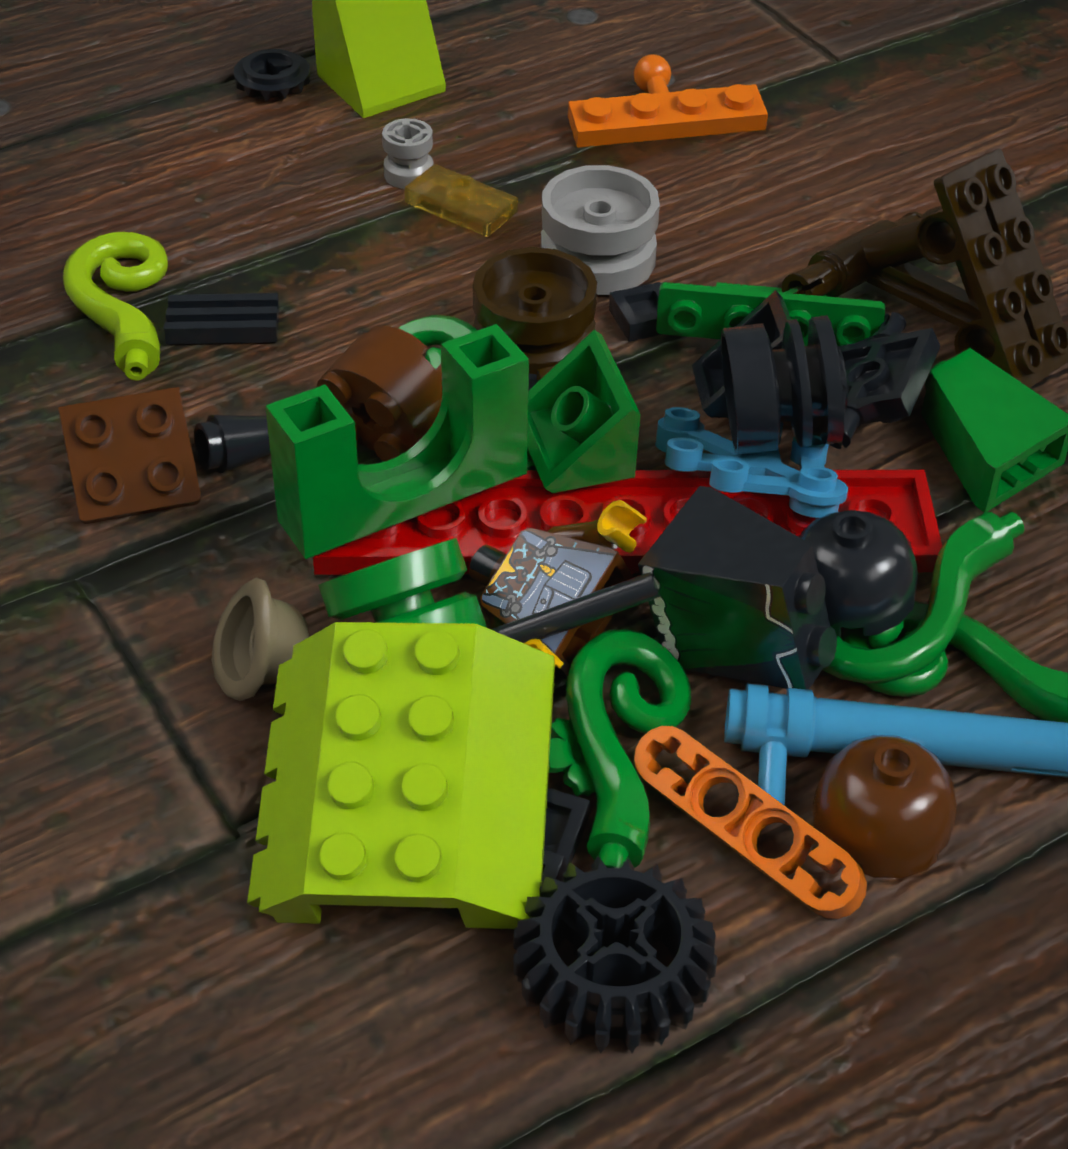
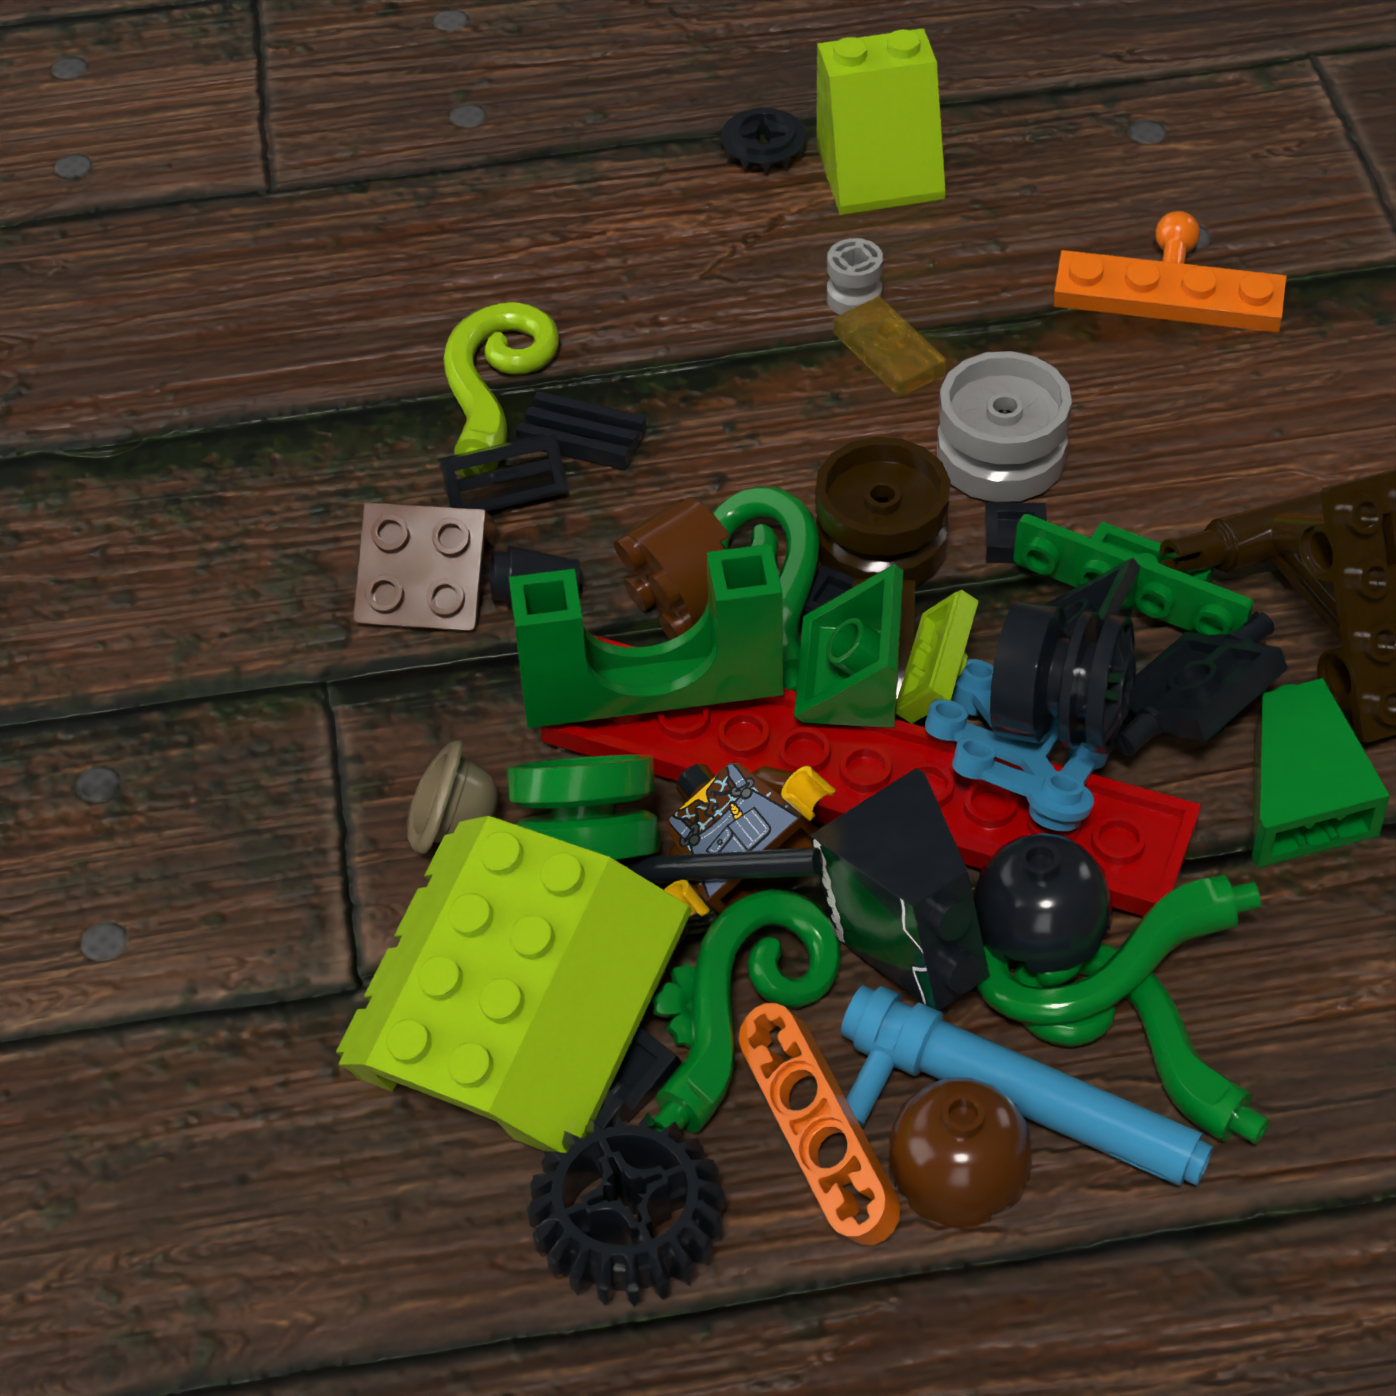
camera: 25 degrees right, 5 degrees up
(130, 384) = (553, 462): none -> black tile
(652, 395) = (936, 655): none -> lime plate

